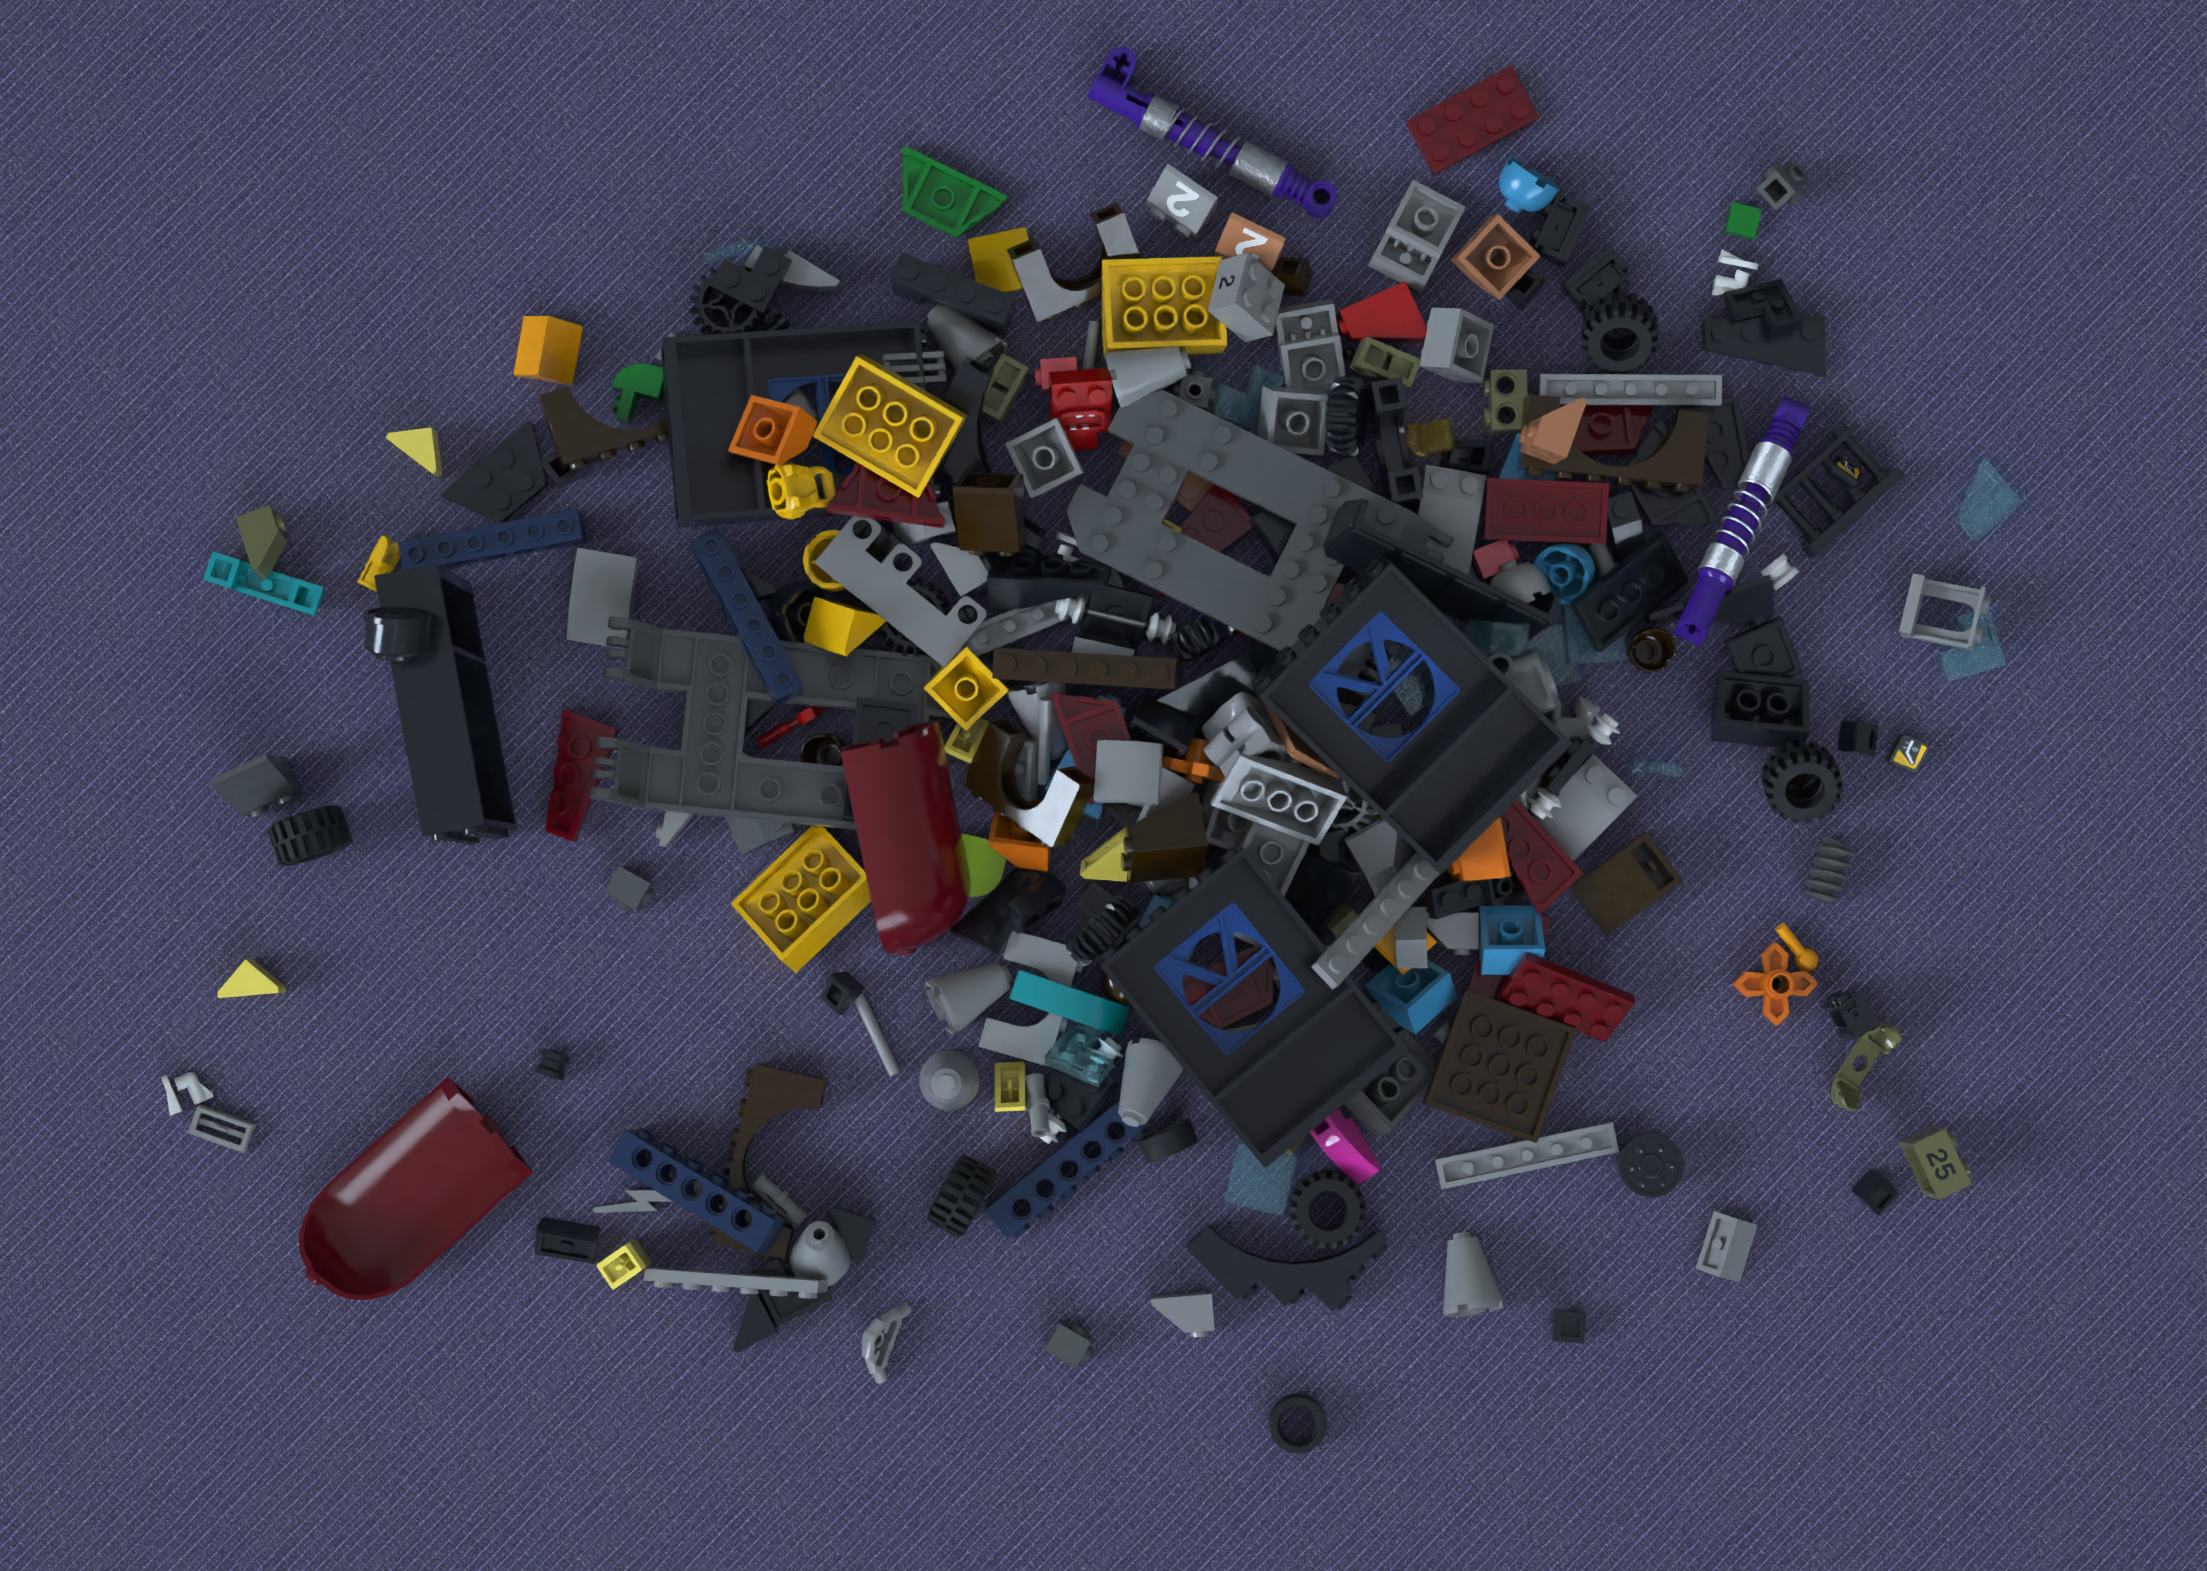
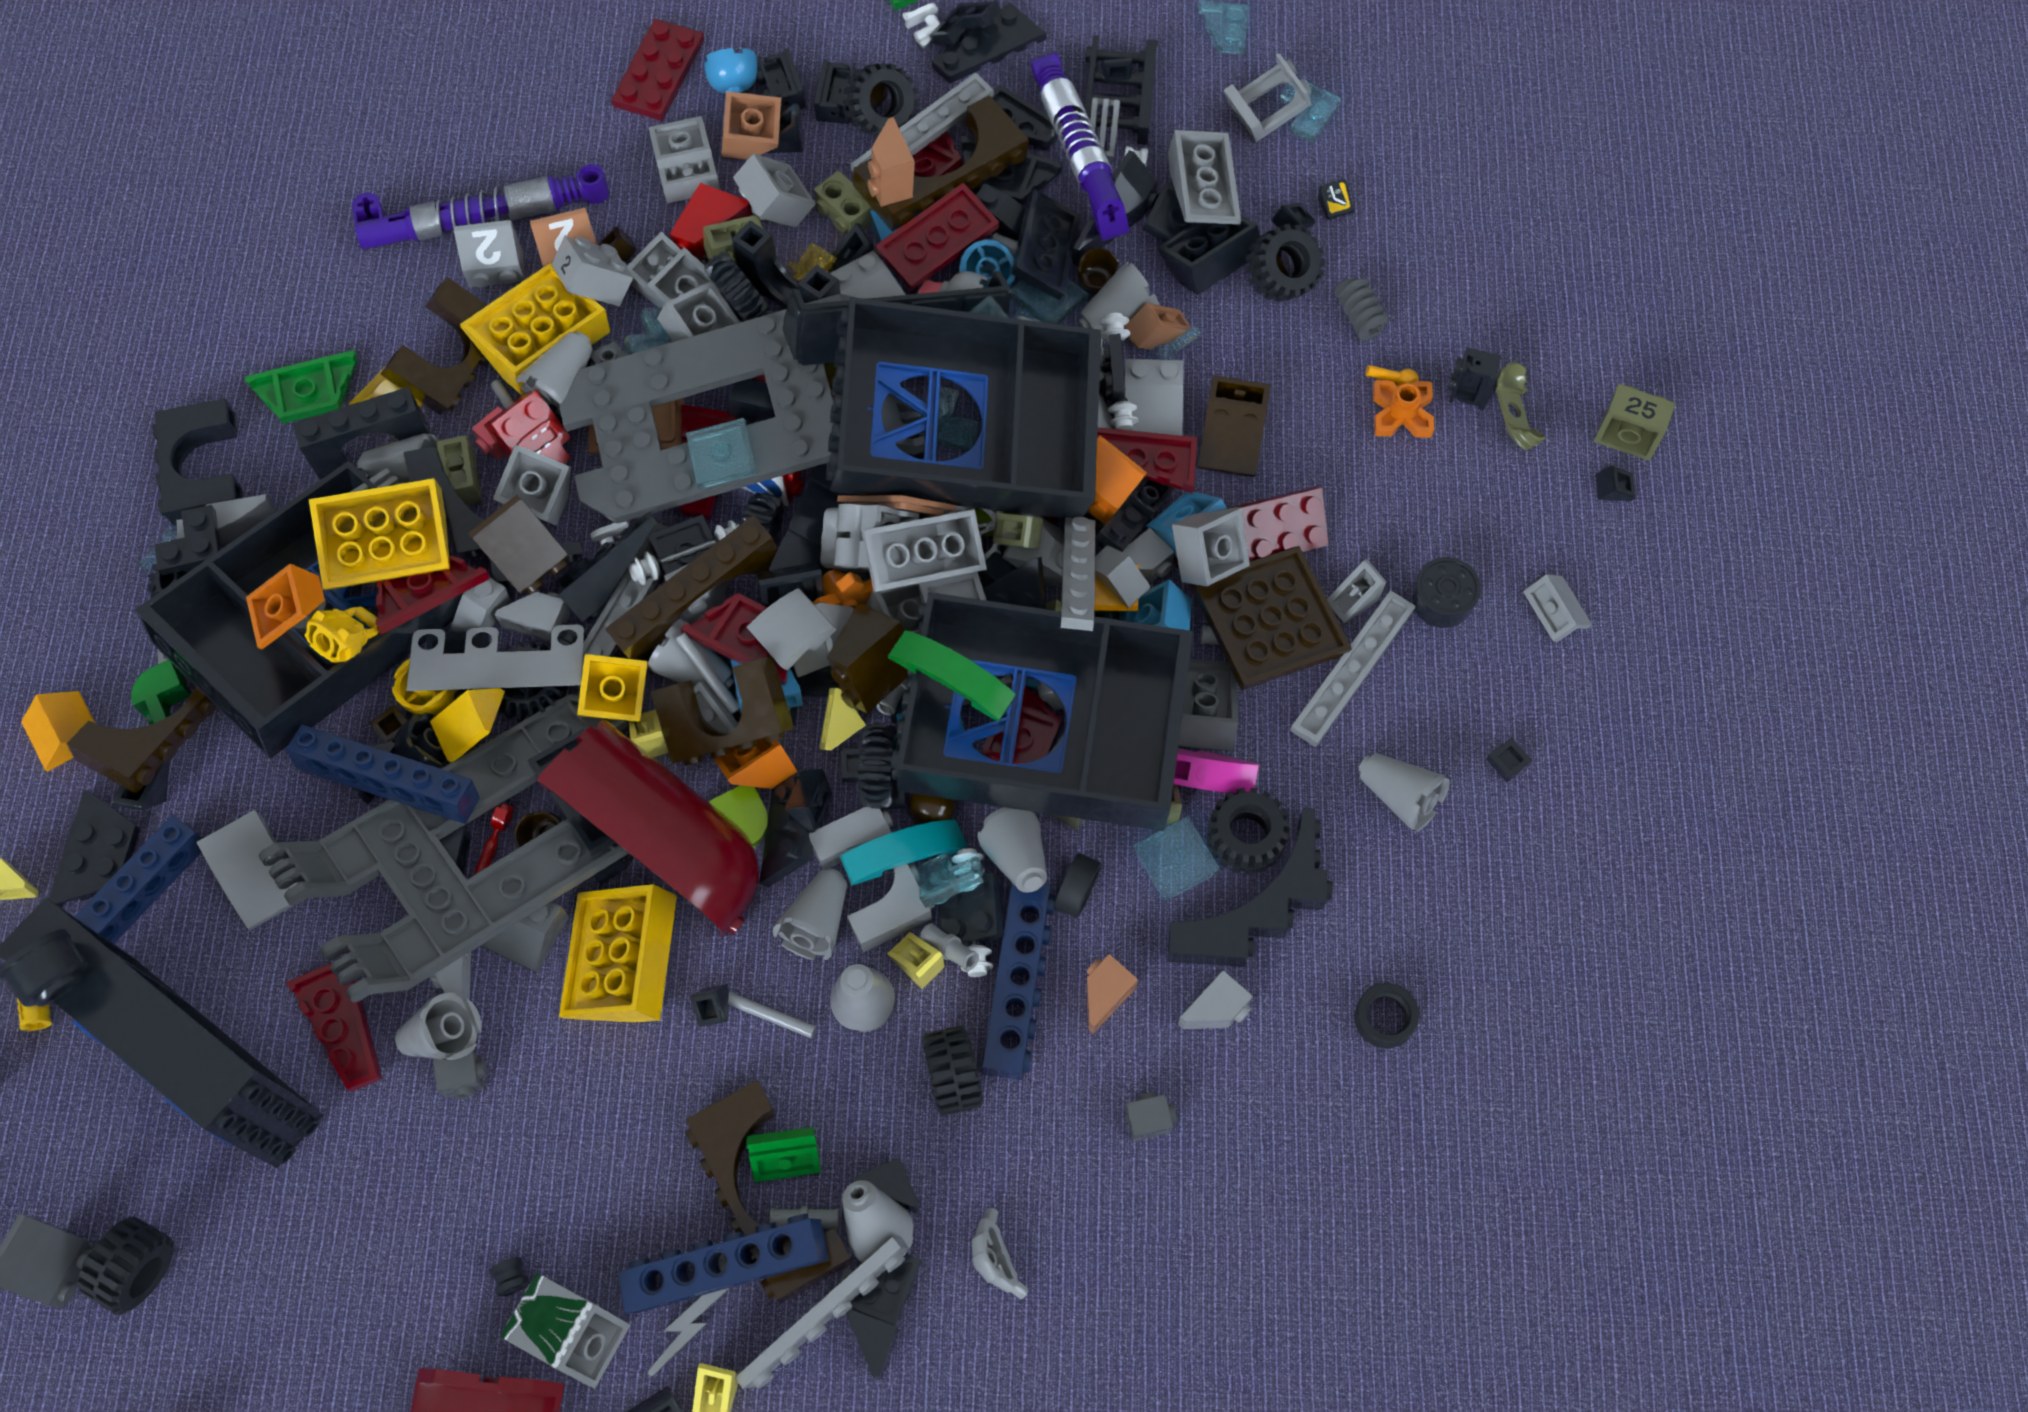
camera: 40 degrees left, 20 degrees down
(560, 1134) = (565, 1330): none -> slope
(638, 853) = (440, 1029): none -> light grey cone
(786, 567) = (388, 724): none -> dark brown slope
(801, 1146) = (783, 1154): none -> green plate
(814, 155) = (177, 435): none -> black arch
(1120, 1230) = (1107, 989): none -> nougat slope
(1201, 573) = (721, 453): none -> clear light blue plate
(1202, 930) = (954, 672): none -> green slope
(1368, 836) = (1017, 530): none -> olive slope
(1498, 981) = (1210, 546): none -> light grey slope
(1584, 1100) = (1357, 592): none -> light grey slope
(1639, 694) = (1123, 293): none -> light grey cone
(1652, 741) = (1156, 325): none -> nougat slope
(1763, 533) = (1106, 103): none -> light grey tile
(1811, 648) = (1204, 177): none -> light grey slope

